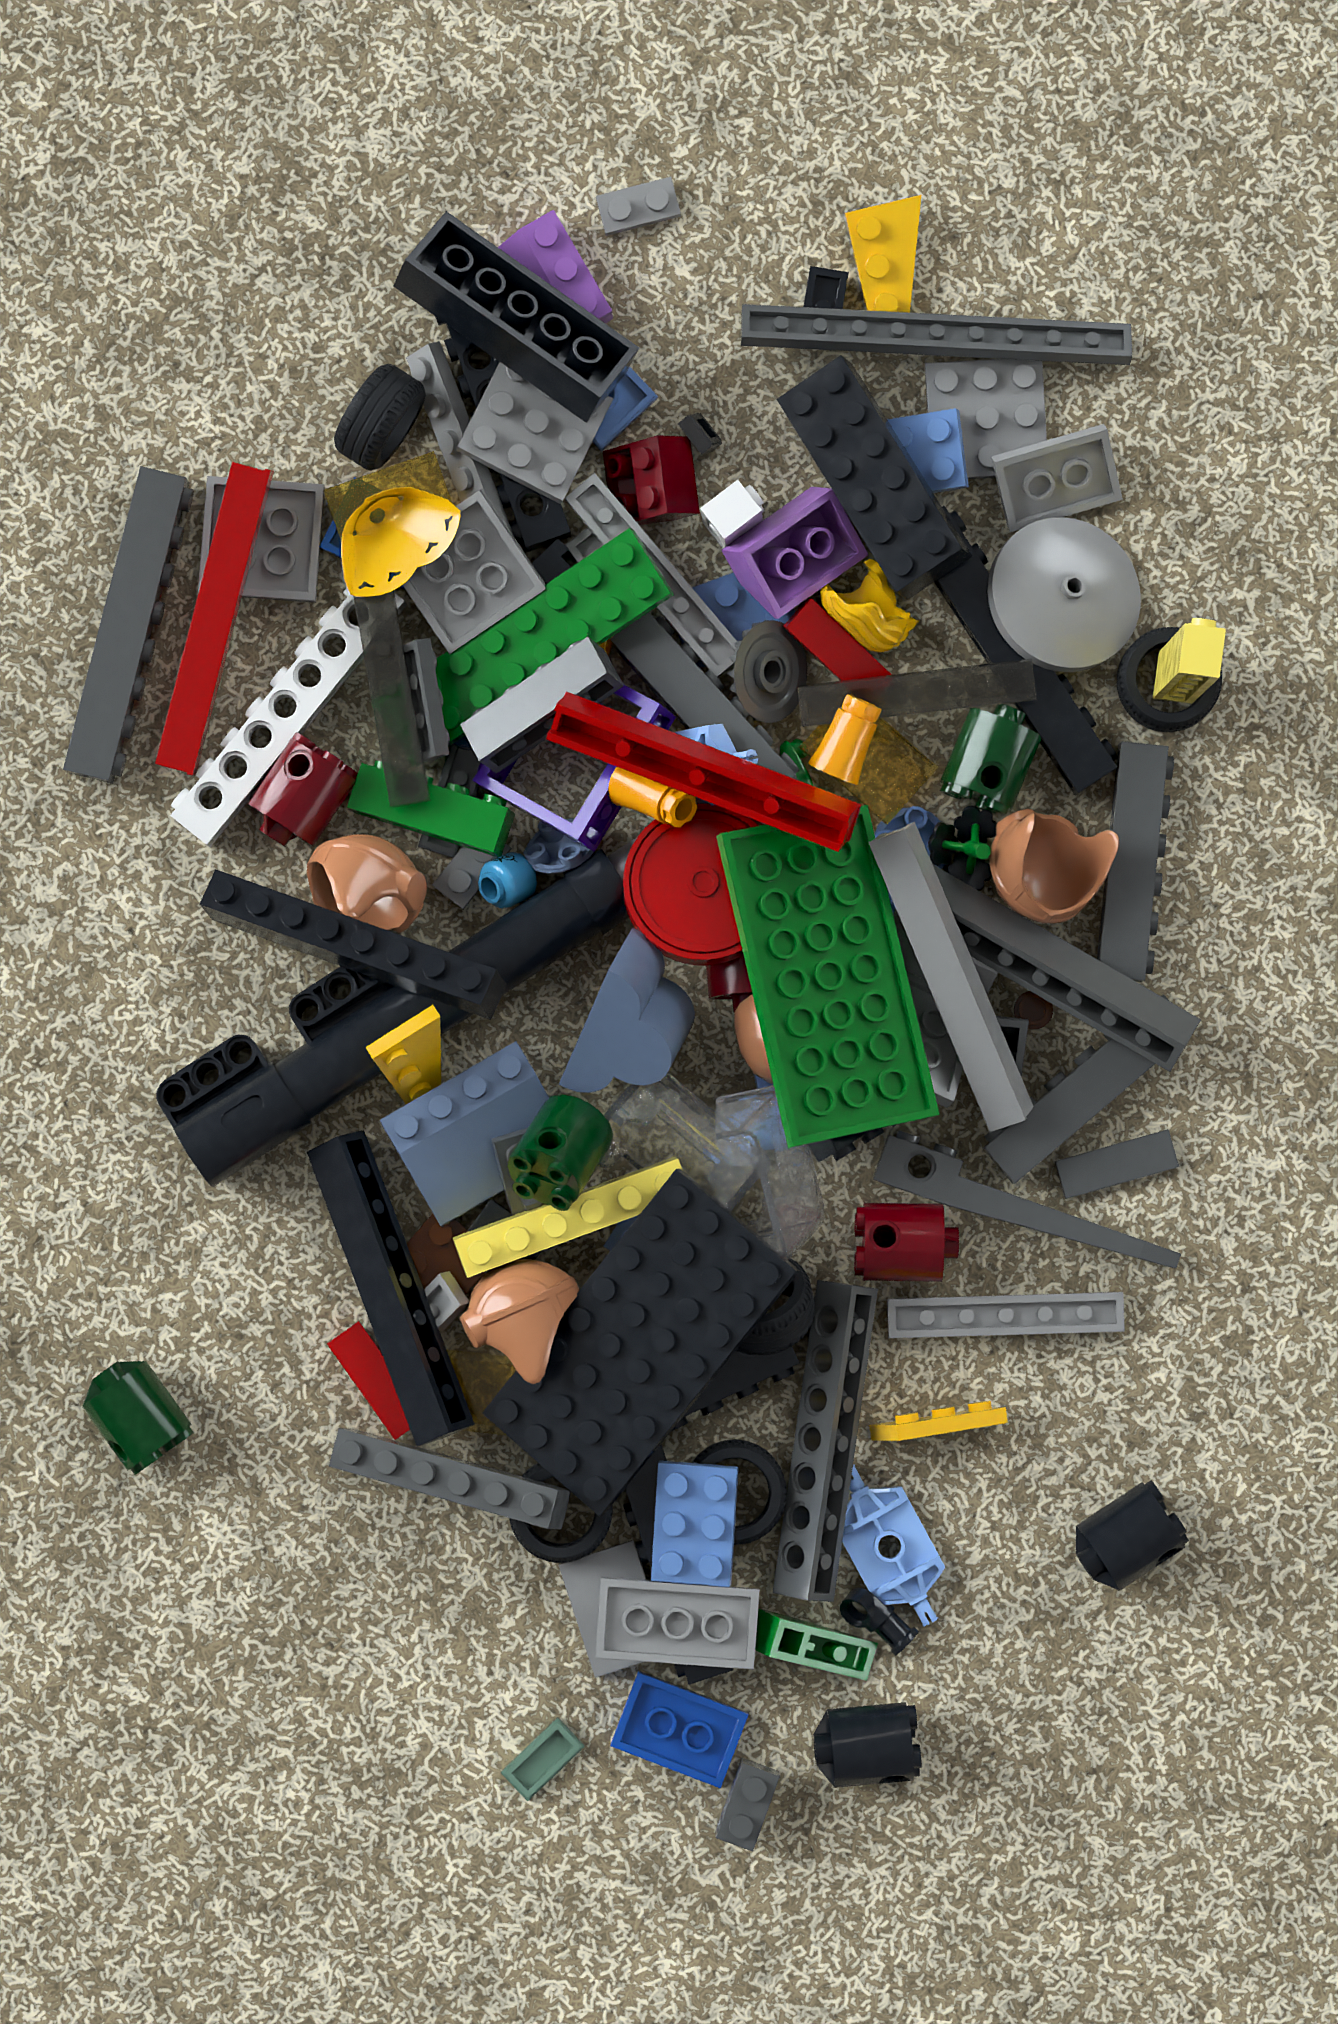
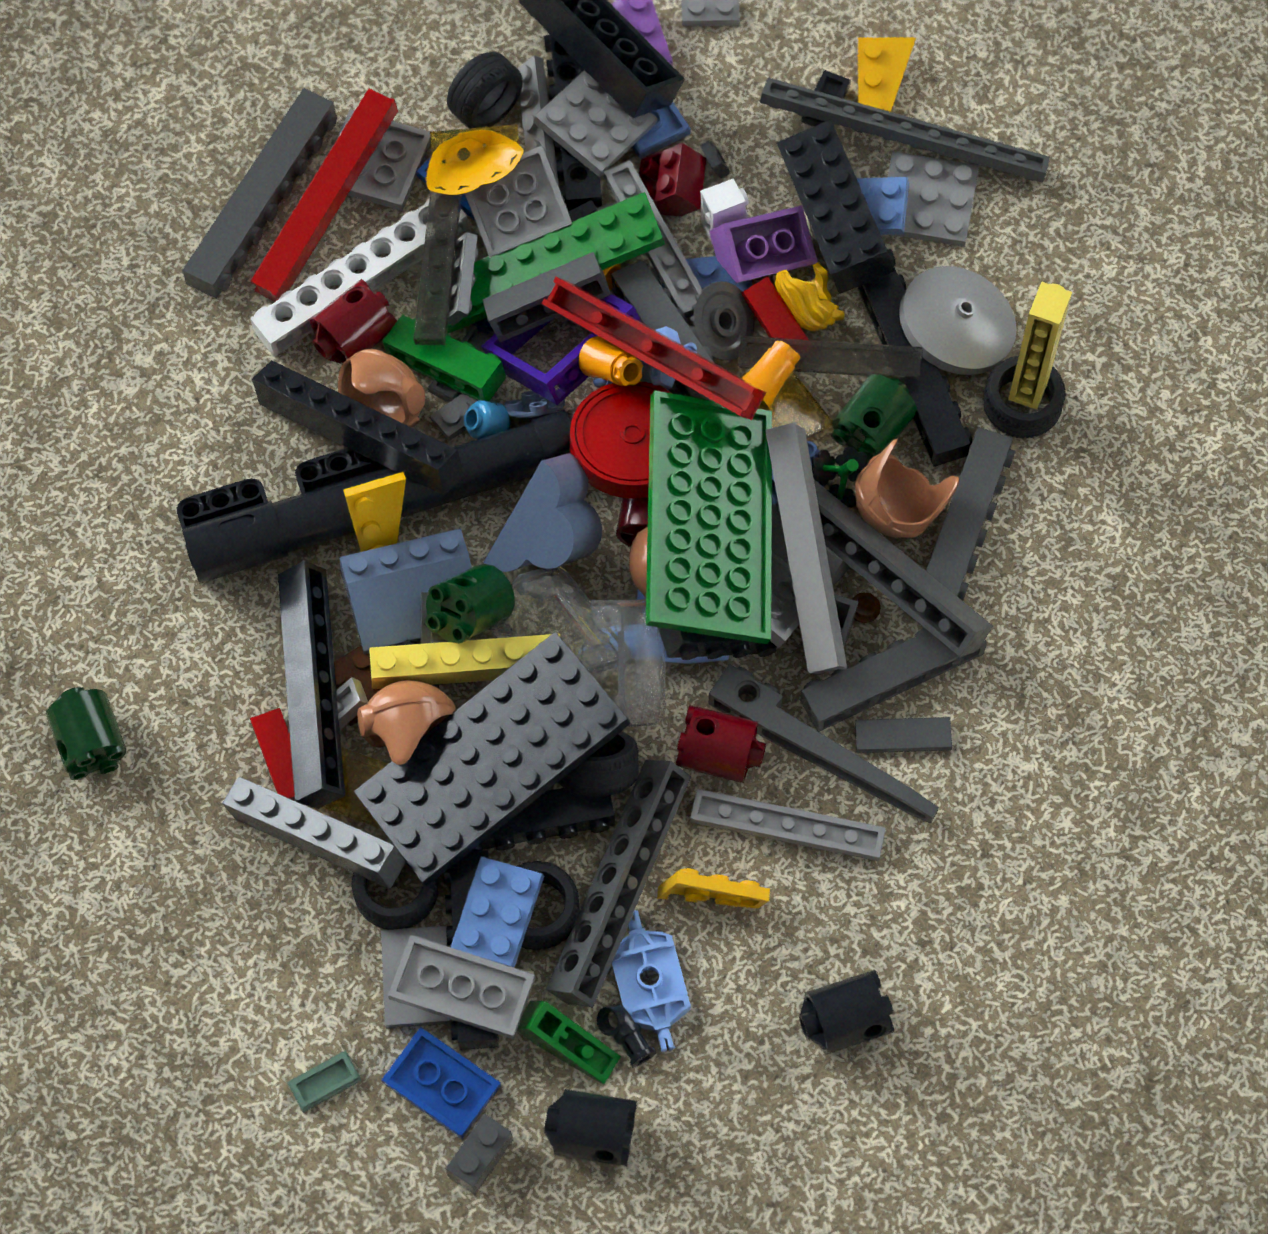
camera: 15 degrees right, 20 degrees down
(1057, 477) = (972, 241): light grey plate -> none

